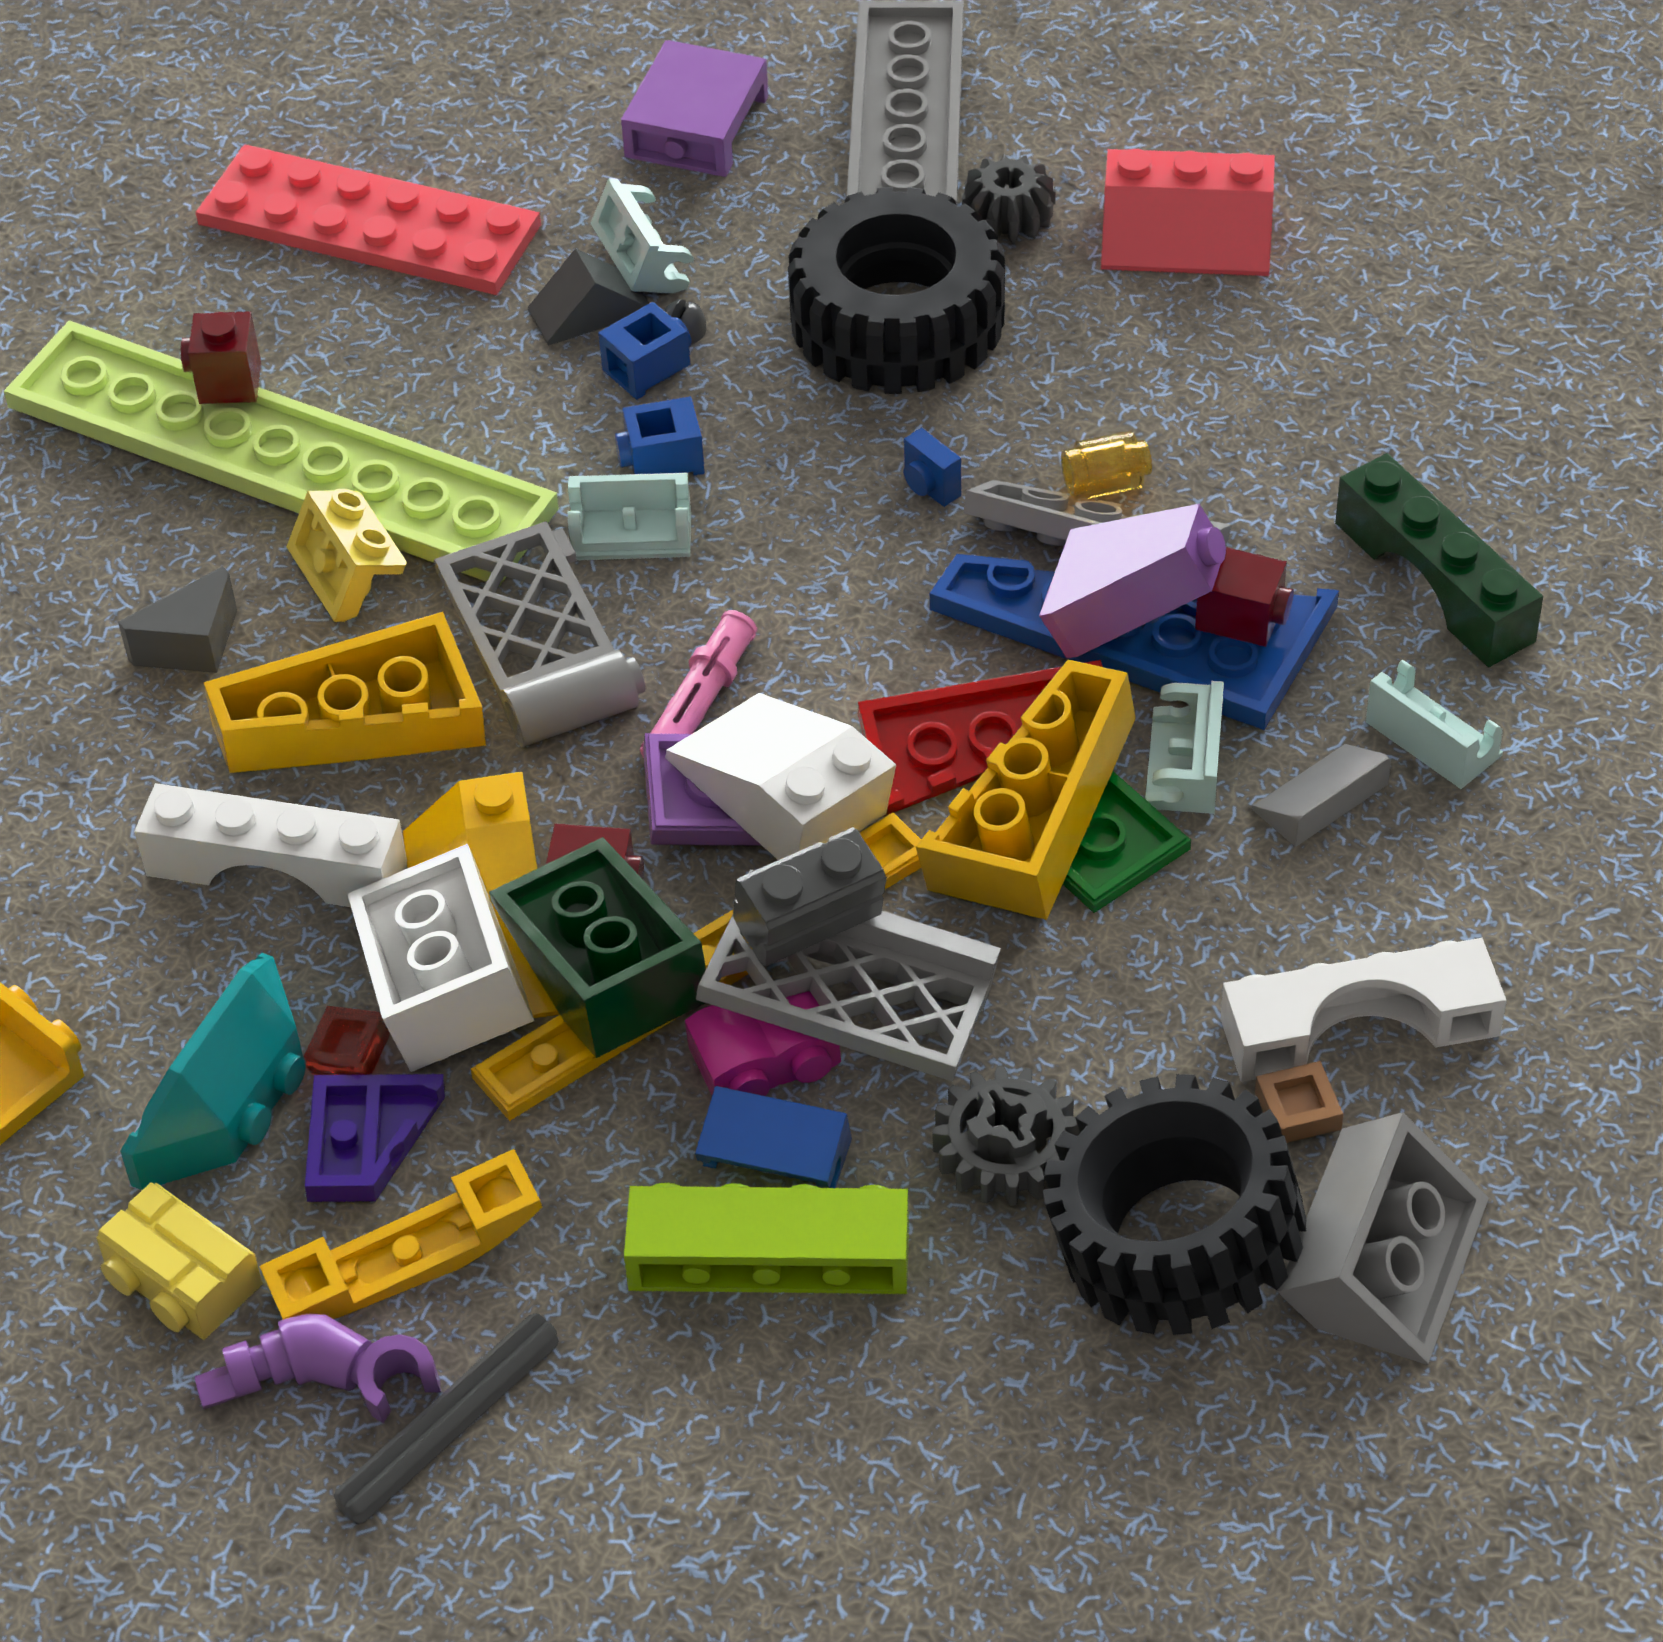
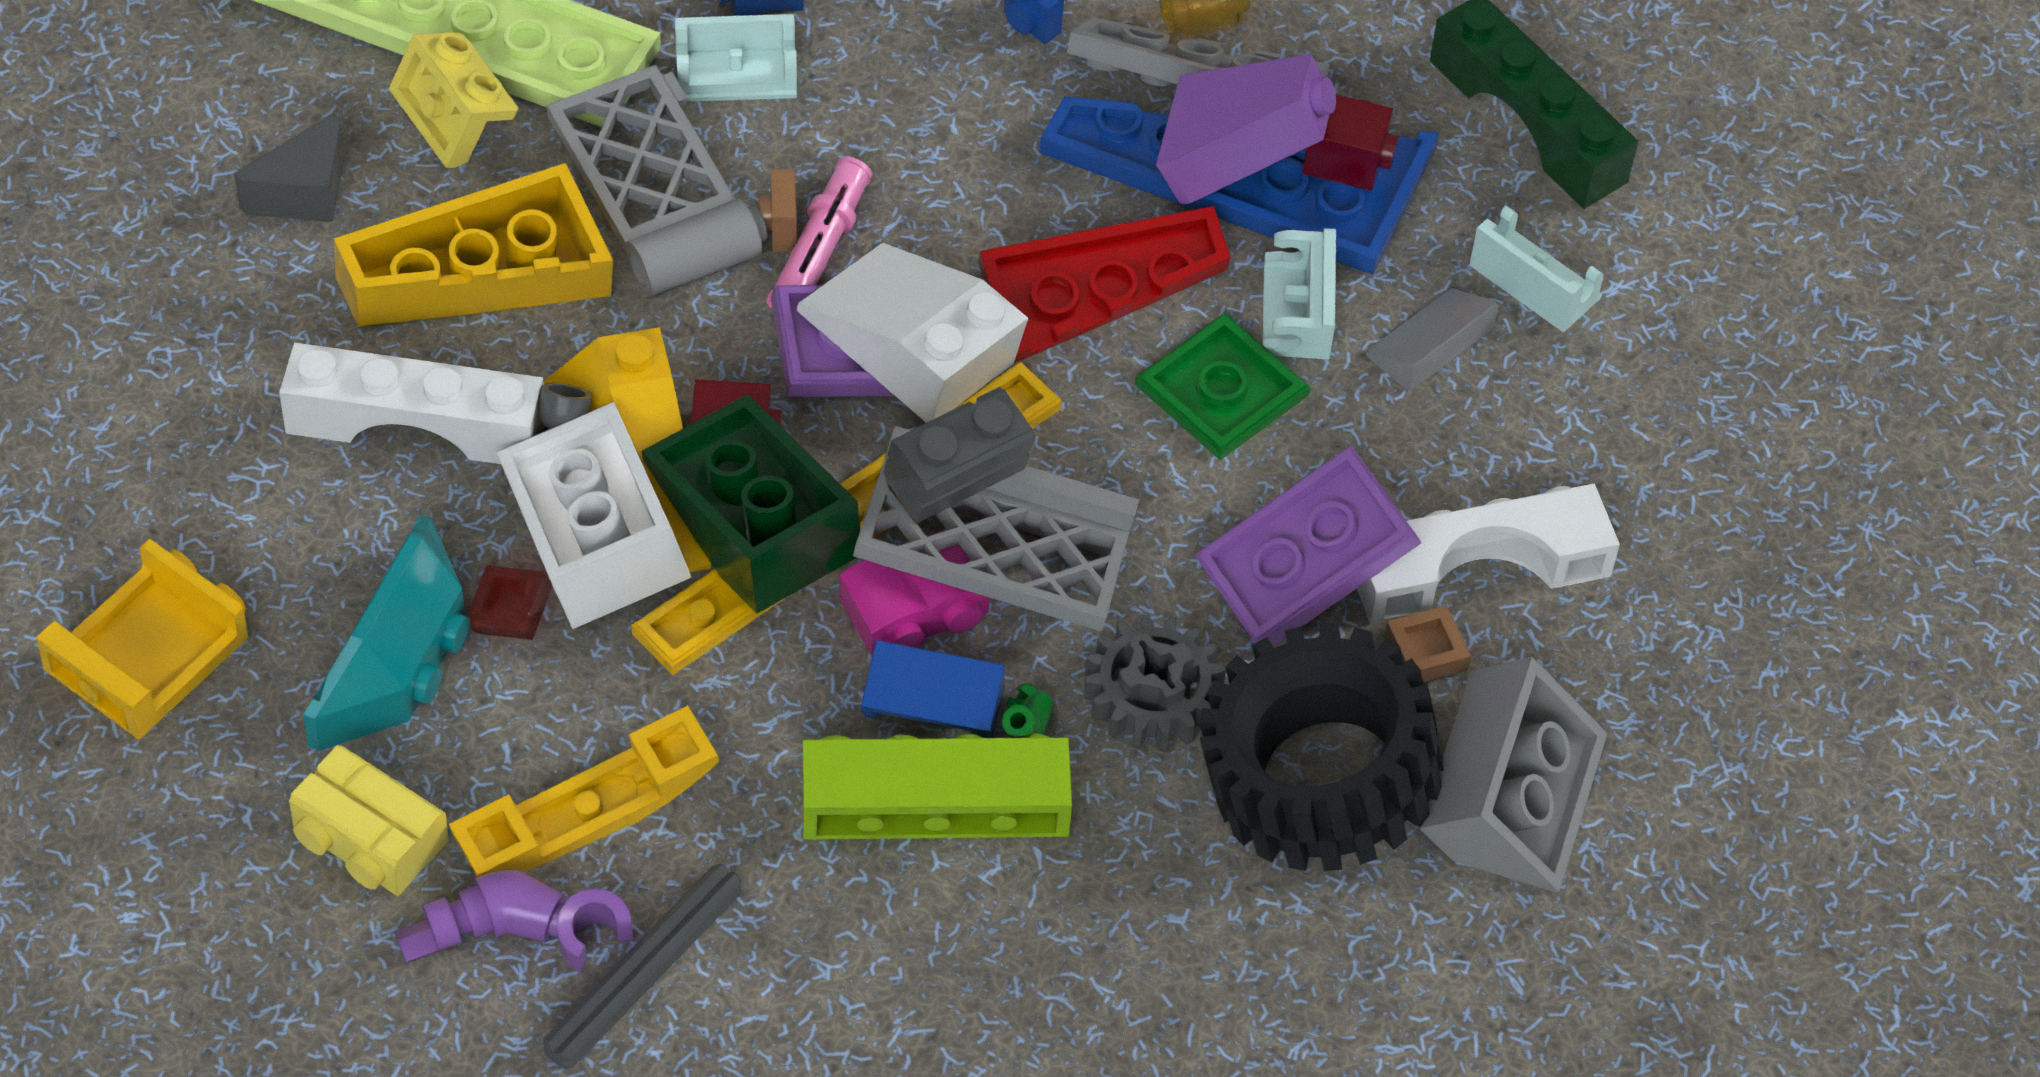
camera: 10 degrees left, 5 degrees up
(365, 1131) = (535, 688): dark purple wing -> none
(417, 845) = (562, 403): none -> dark grey hinge
(660, 661) = (780, 210): none -> medium nougat plate
(871, 1165) = (1027, 712): none -> green arm
(1032, 805) = (1157, 358): yellow wedge -> none
(1175, 999) = (1308, 548): none -> medium lavender tile

